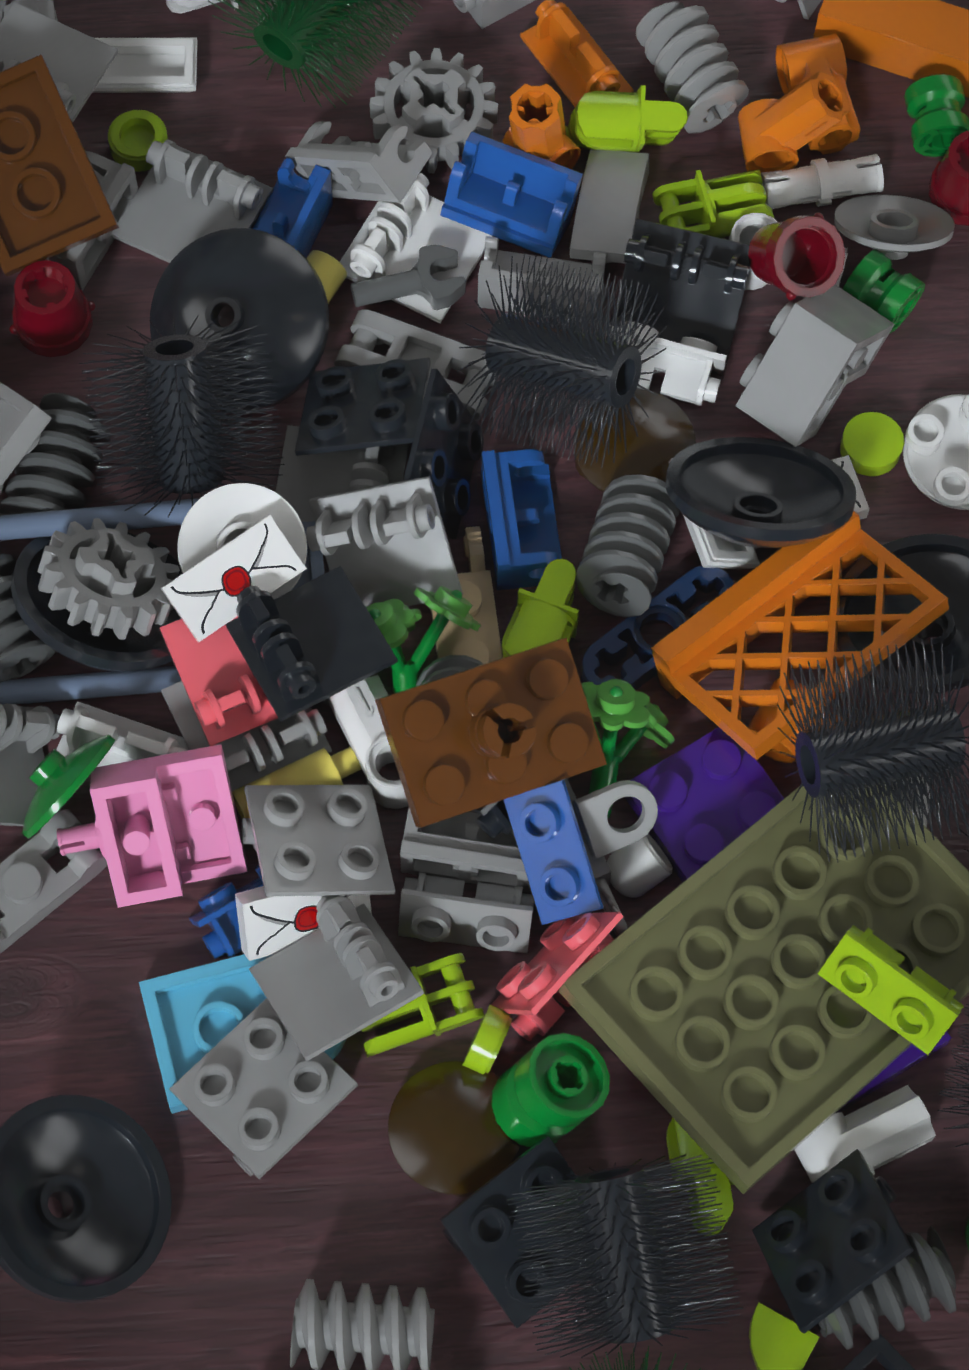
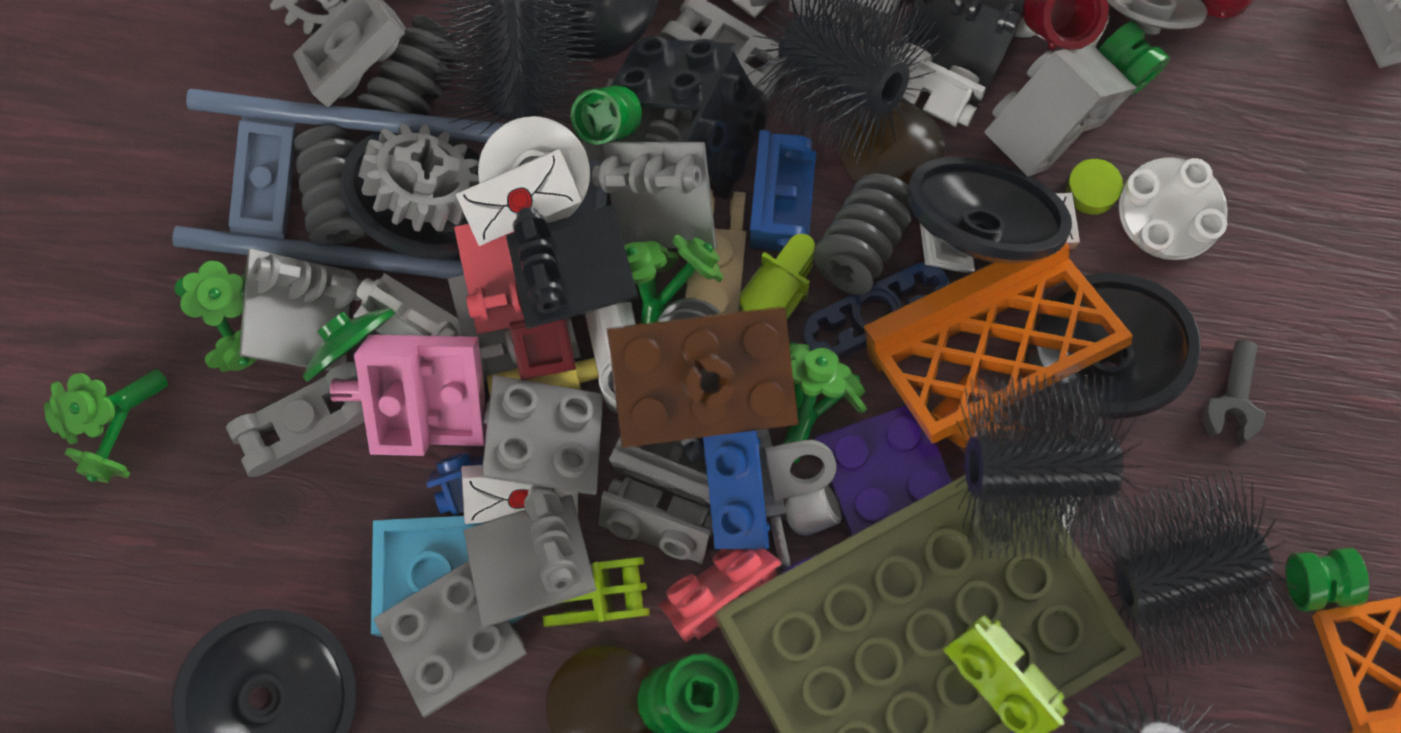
camera: 20 degrees right, 5 degrees up
(294, 744) = (542, 348): none -> dark red tile
(296, 472) = (595, 119): none -> green wheel
(487, 1040) = (648, 636): lime tile -> none

